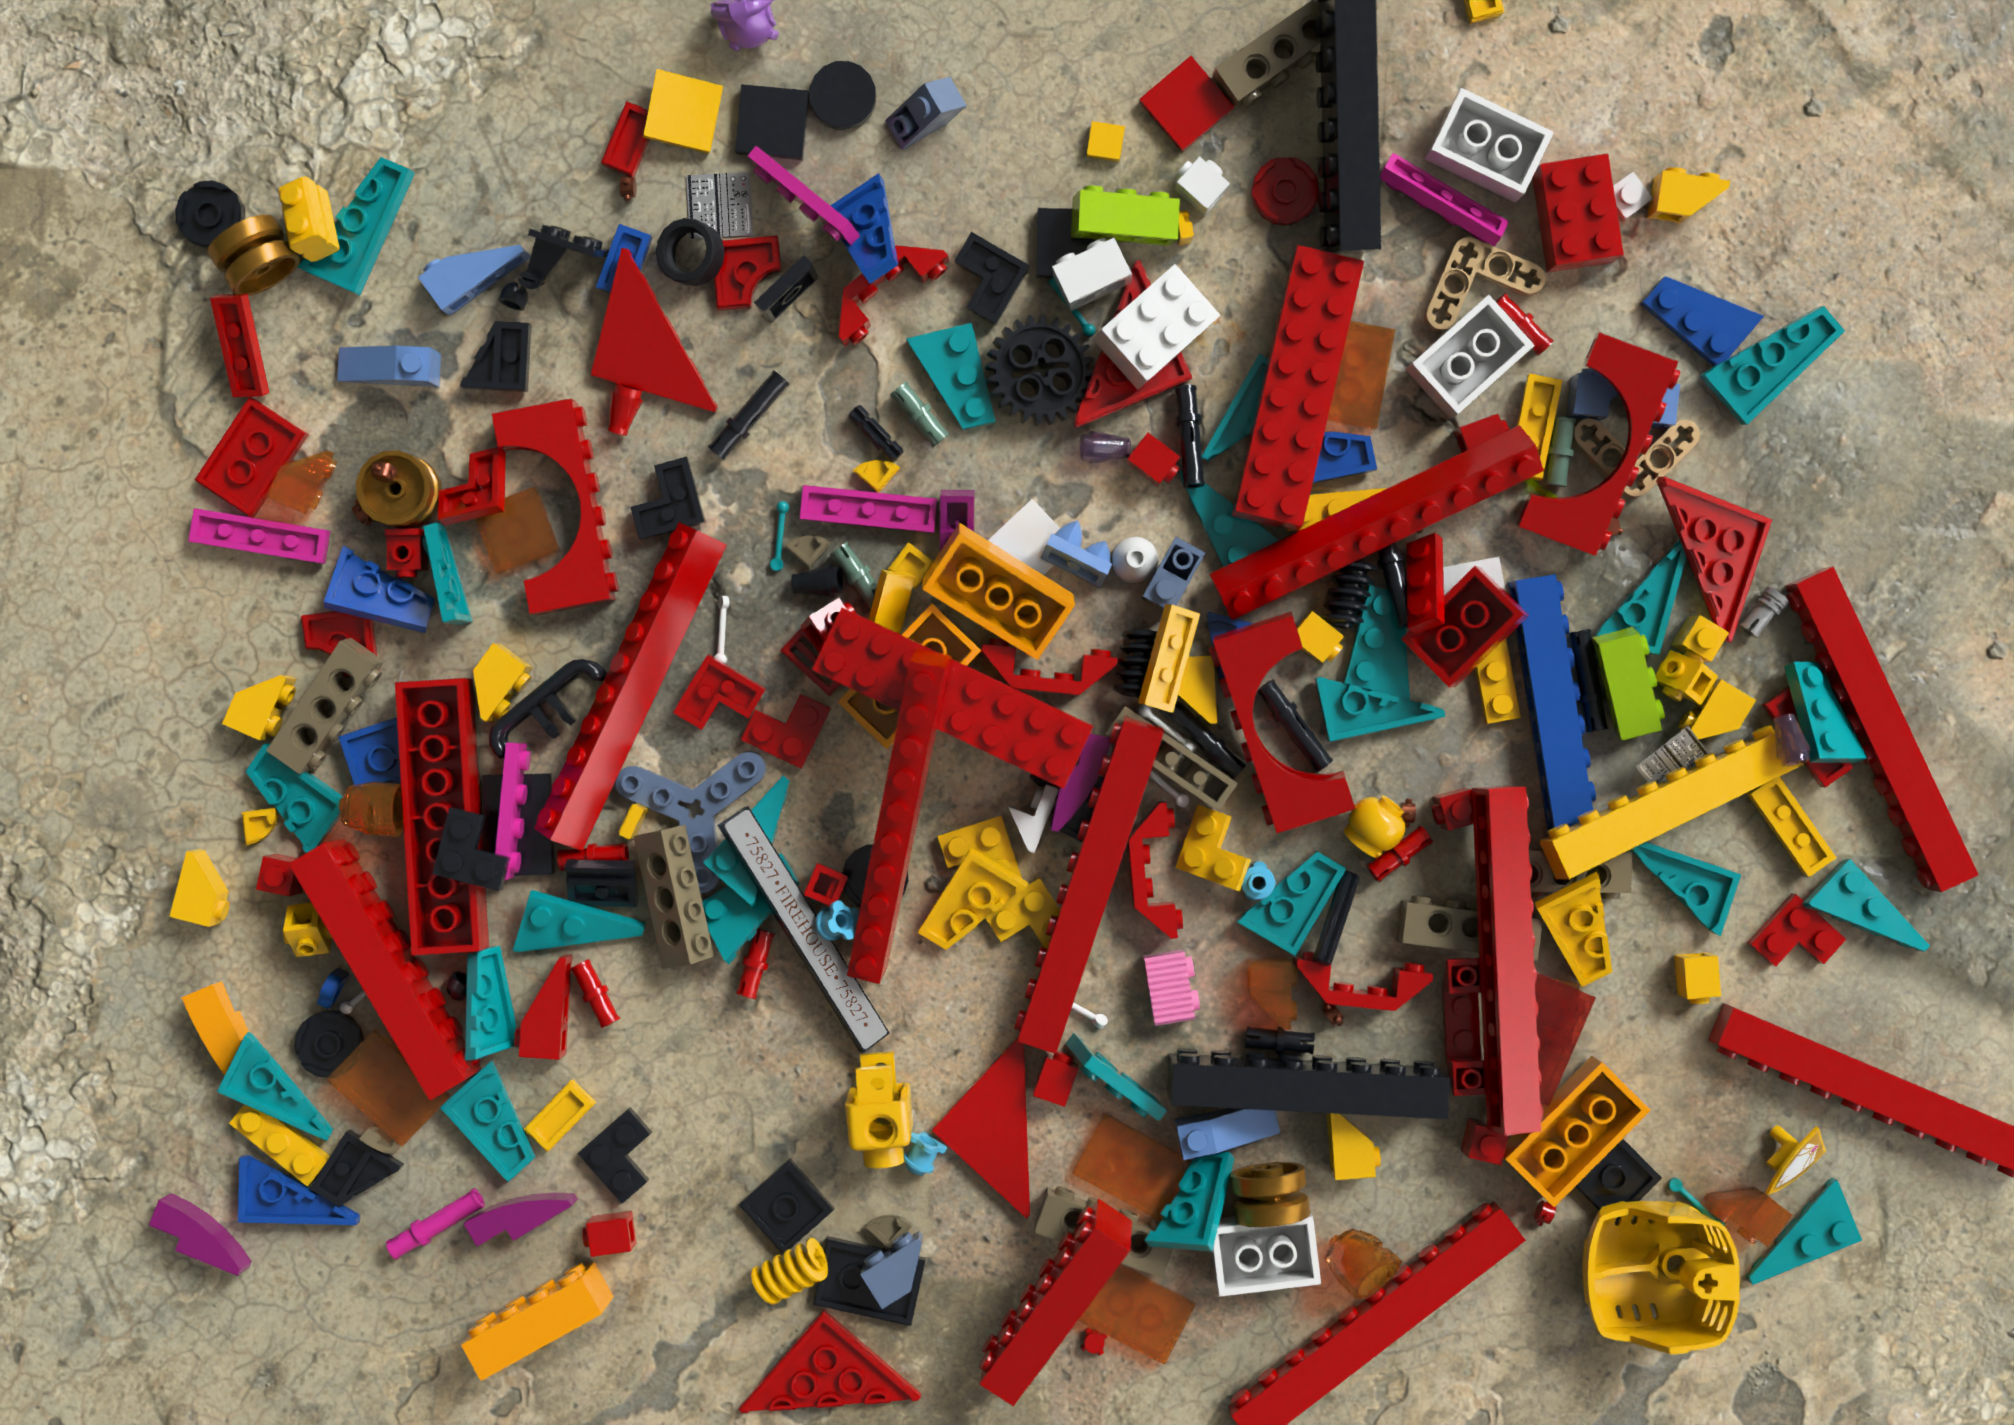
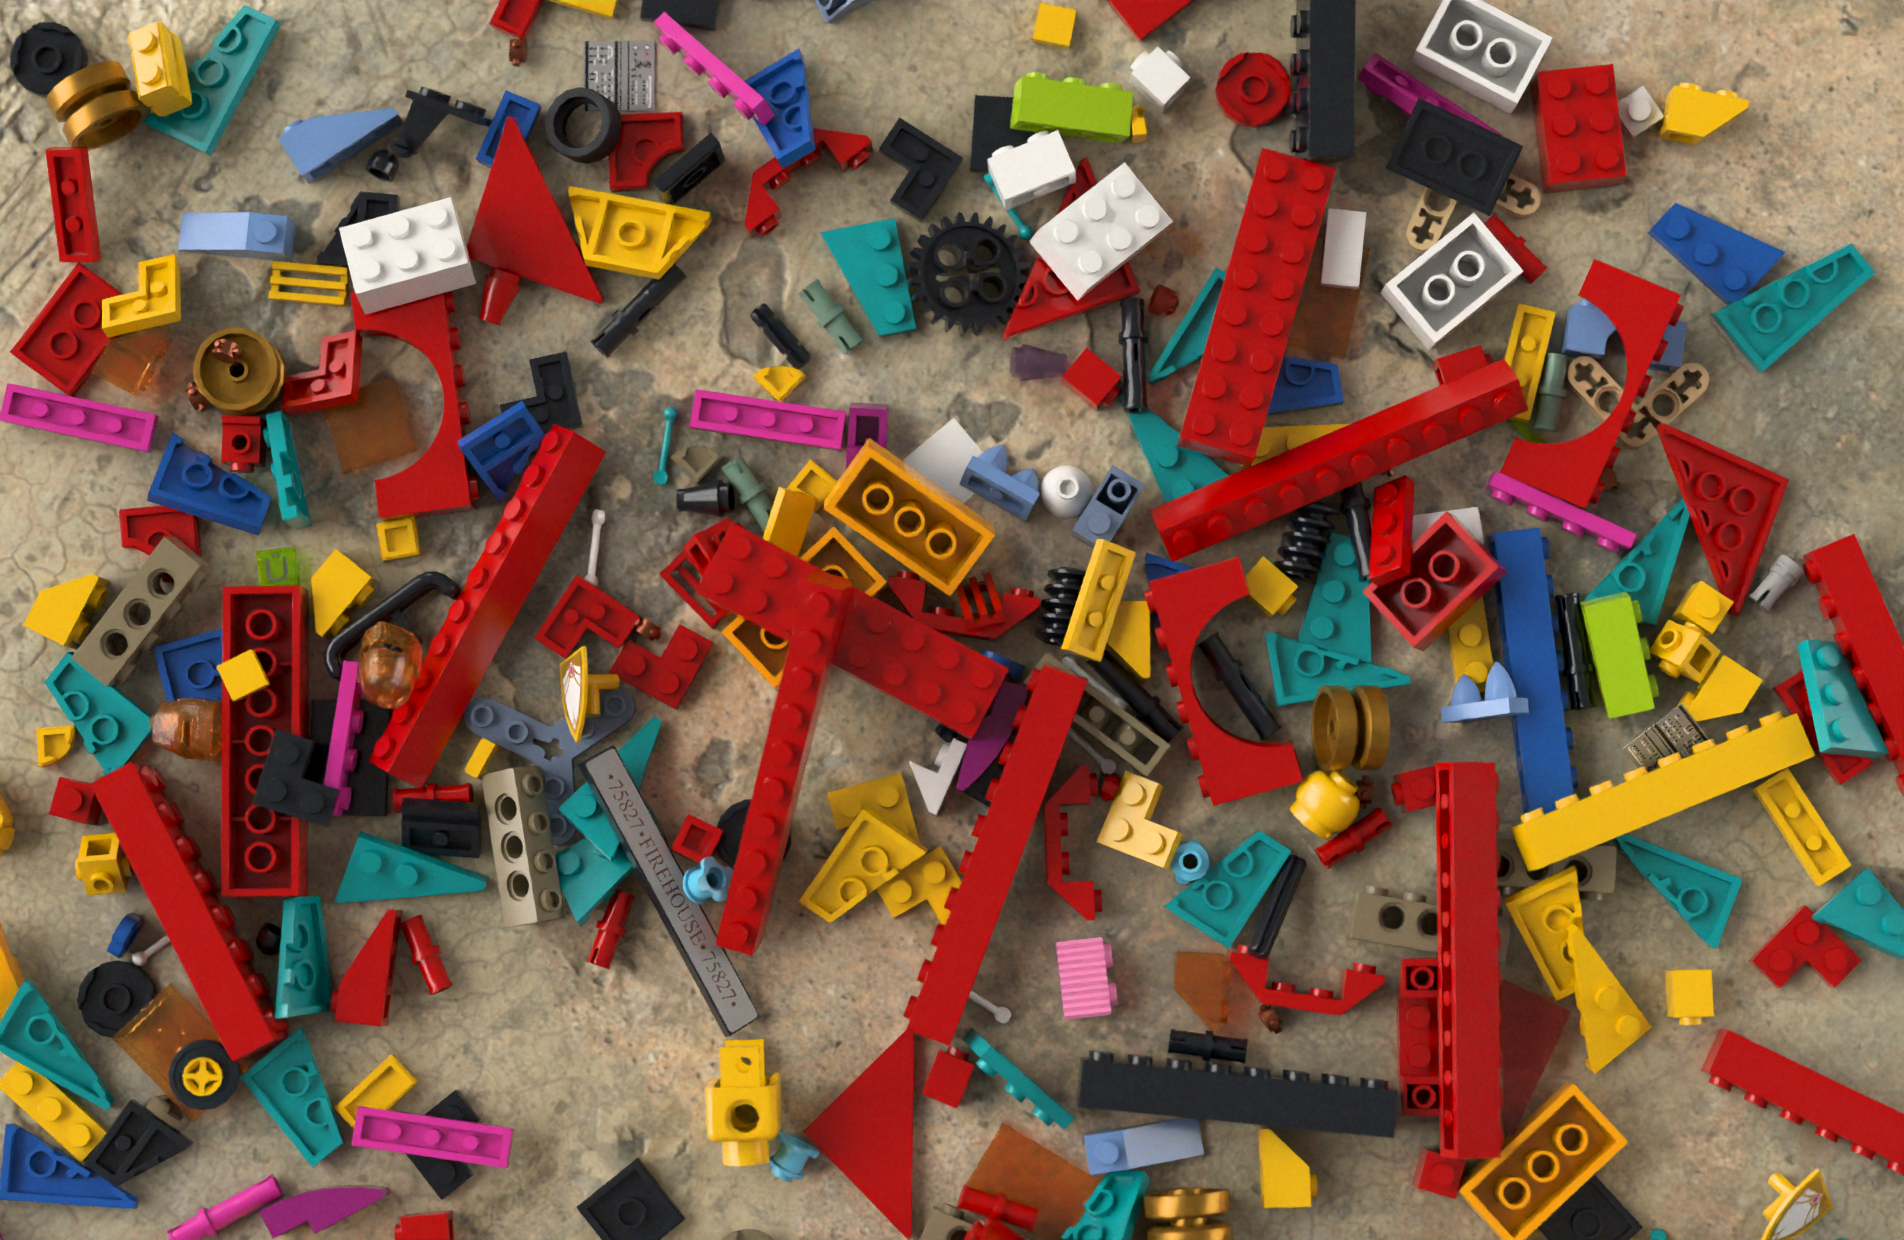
camera: 10 degrees right, 5 degrees down
(316, 433) = (152, 306): none -> yellow plate
(406, 1121) = (202, 1088): none -> black wheel
(417, 760) = (243, 675): none -> yellow tile
(426, 405) = (277, 280): none -> yellow tile
(444, 660) = (278, 567): none -> clear neon green tile
(539, 378) = (407, 256): none -> white brick
(543, 755) = (385, 673): none -> clear orange helmet
(549, 630) = (398, 539): none -> yellow tile
(610, 1152) = (432, 1136): none -> dark pink plate
(635, 545) = (502, 447): none -> blue wing
(718, 758) = (581, 690): none -> shield
(740, 347) = (633, 232): none -> yellow wing
(772, 699) = (647, 629): none -> copper piece
(1059, 649) = (976, 588): none -> red tile
(1089, 716) = (1015, 669): none -> blue tile
(1104, 1189) = (998, 1206): none -> red pin
(1184, 819) = (1109, 787): none -> red piece
(1213, 386) = (1163, 301): none -> clear red hinge
(1371, 332) = (1343, 249): none -> white tile
(1395, 759) = (1350, 727): none -> pearl gold wheel
(1468, 244) = (1454, 157): none -> black tile
(1525, 727) = (1498, 703): none -> medium blue tile
(1583, 564) = (1574, 520): none -> dark pink plate
(1626, 994) = (1607, 1012): none -> yellow wing
(1790, 741) = (1798, 727): cone -> none

